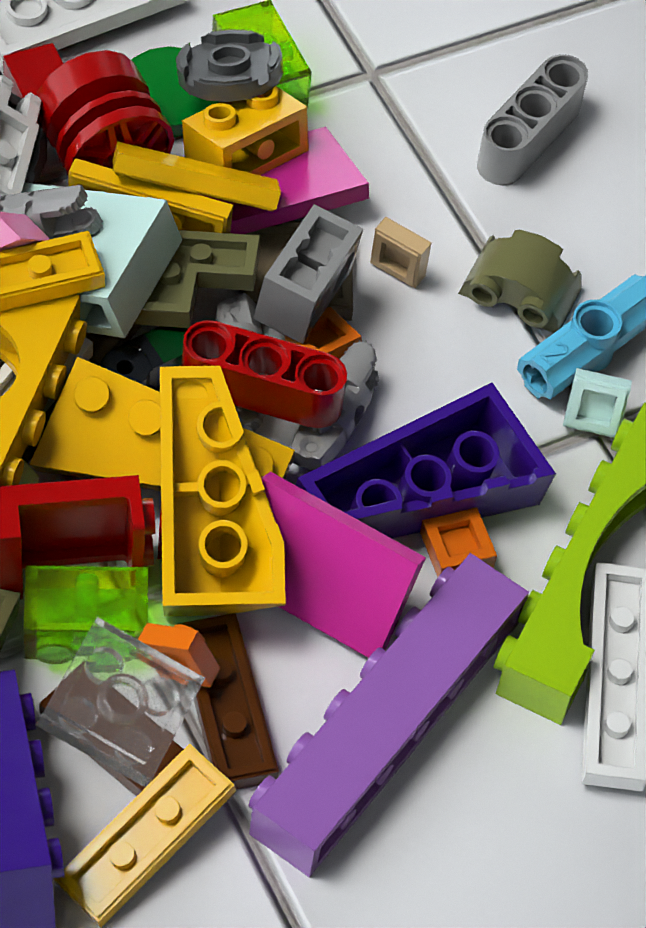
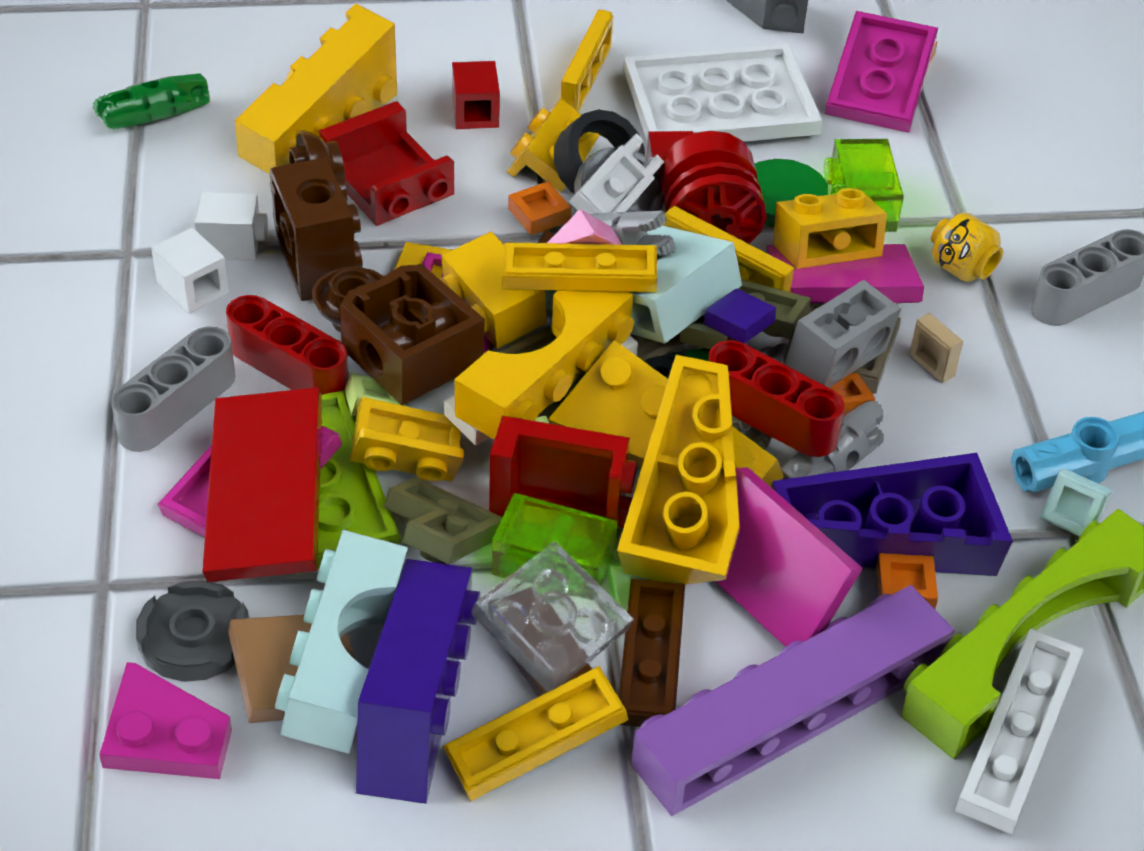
camera: 25 degrees right, 10 degrees down
(184, 646) = (625, 589): orange plate -> none
(196, 176) = (770, 241): yellow tile -> none
(196, 283) = (740, 316): none -> dark purple tile
(229, 66) = (832, 171): dark grey tile -> none
(394, 116) = (966, 247): none -> yellow head
(526, 275) = (1045, 391): olive cylinder -> none

